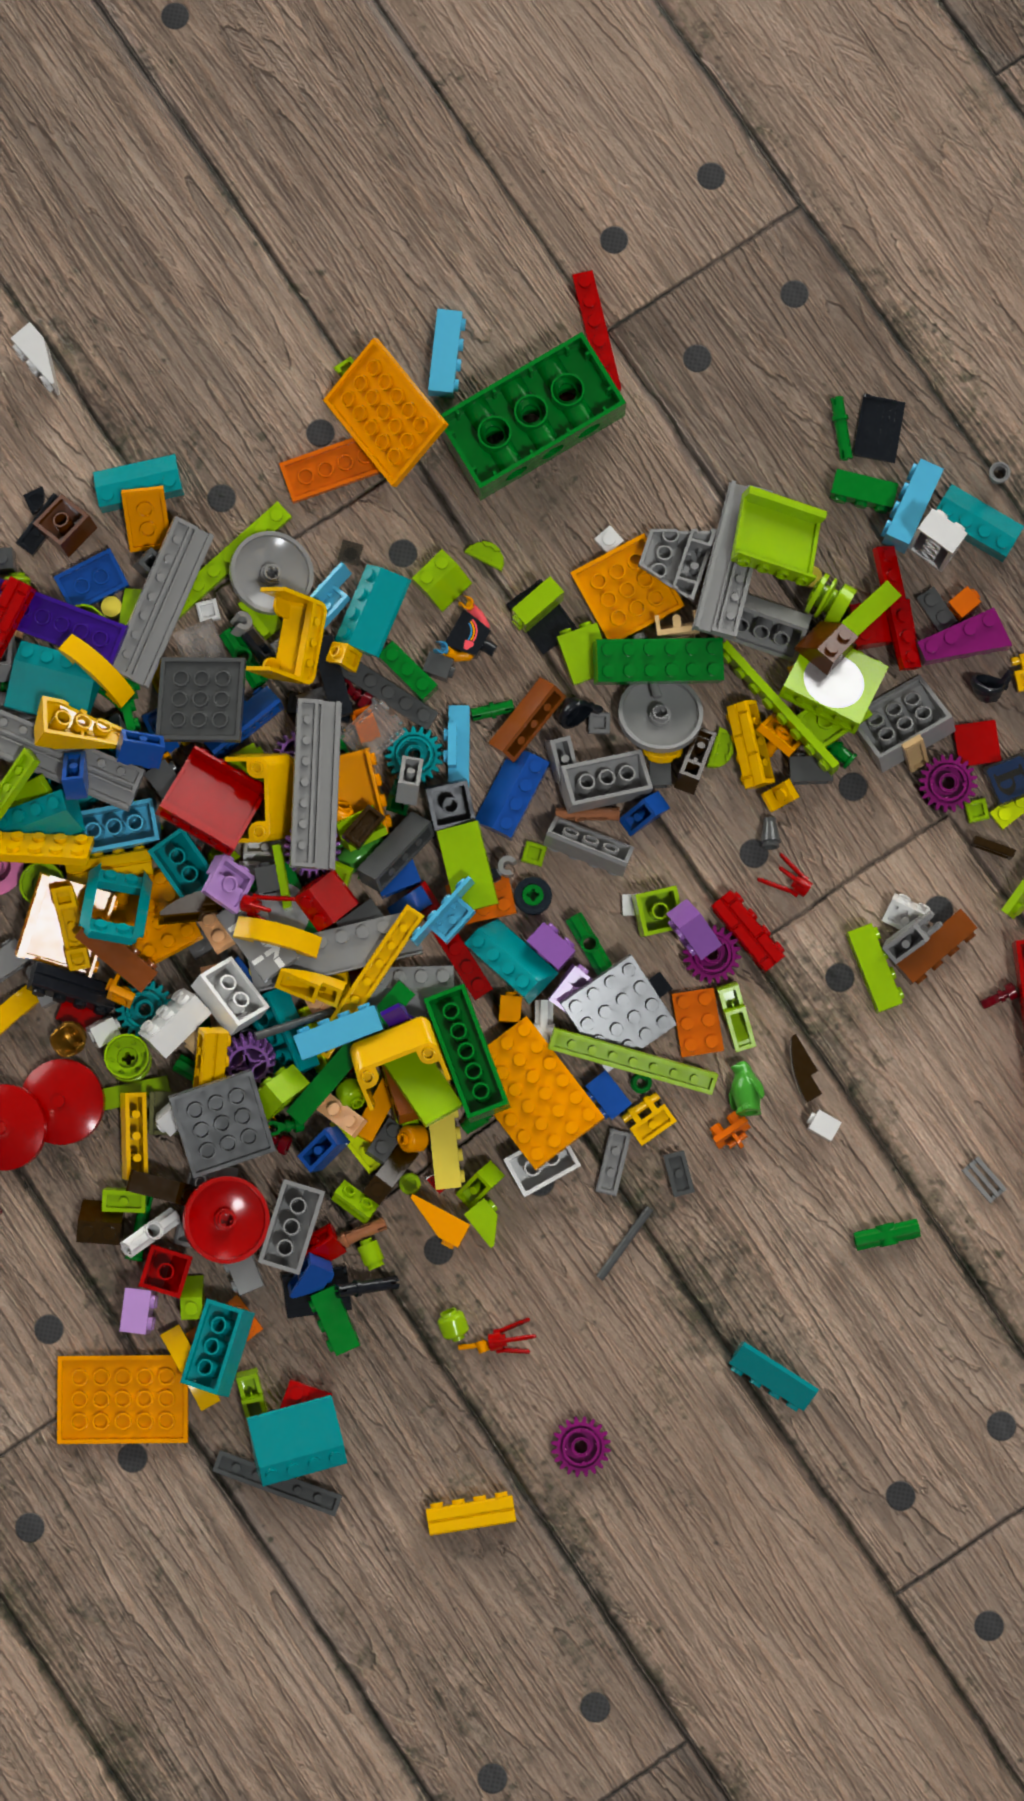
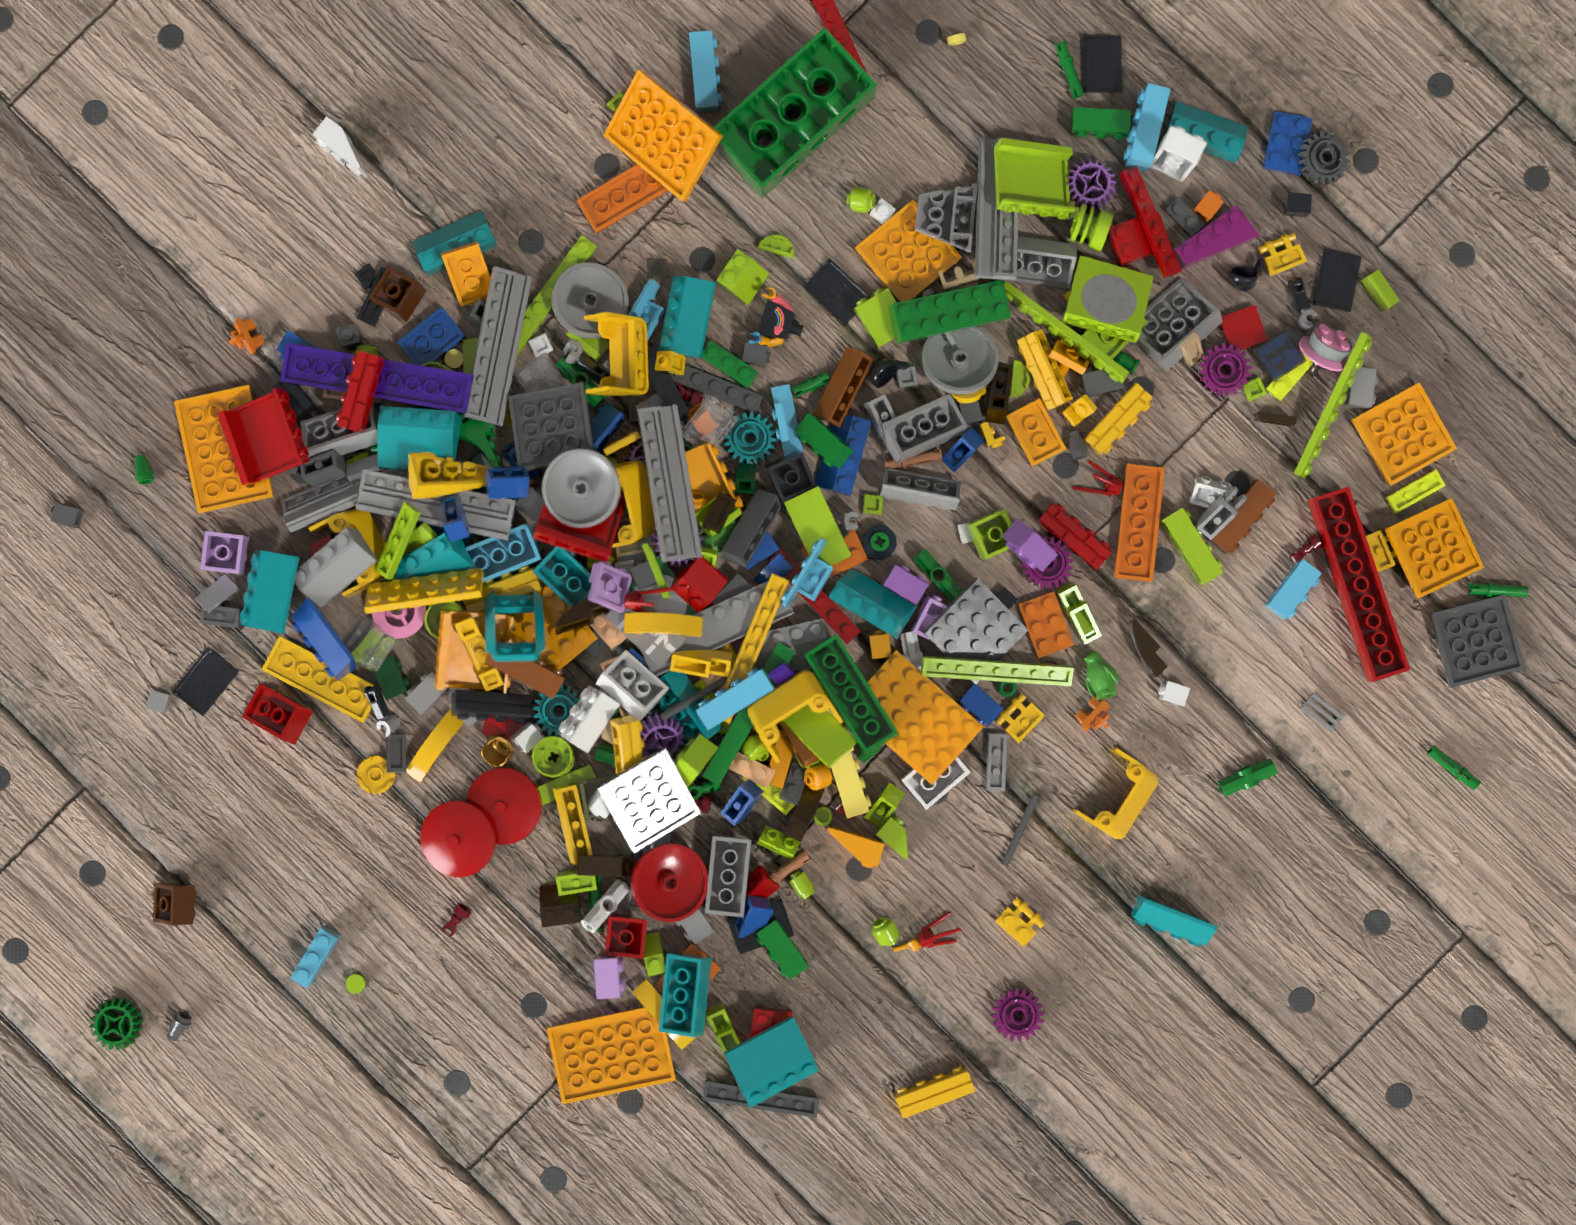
camera: 15 degrees left, 5 degrees up
(98, 669) = (454, 418): yellow slope -> none
(120, 995) = (534, 703): light orange bracket -> none
(219, 770) = (581, 488): none -> light grey dish
(272, 732) = (618, 444): none -> yellow tile
(359, 1287) = (797, 917): black pin -> none
(409, 780) = (751, 462): light grey brick -> none
(493, 773) = (823, 441): none -> green brick
(537, 605) = (832, 282): lime brick -> none
(587, 522) = (861, 199): none -> lime head
(599, 1349) = (1015, 926): none -> yellow plate
(675, 802) = (987, 433): none -> yellow bracket
(678, 1173) = (1055, 760): dark grey plate -> none
(725, 372) = (956, 39): none -> light yellow tile
(727, 810) = (1035, 432): none -> light orange plate
(737, 1255) = (1120, 823): none -> yellow windscreen
(820, 813) = (1117, 419): none -> yellow brick
(821, 931) = (1139, 522): none -> orange plate
(827, 645) = (1096, 267): reddish brown slope -> none
(833, 549) = (1096, 188): none -> medium lavender gear
(872, 608) = (1129, 228): lime tile -> none
(977, 1038) = (1293, 589): none -> medium azure brick
(1000, 466) = (1221, 78): light grey piece -> none

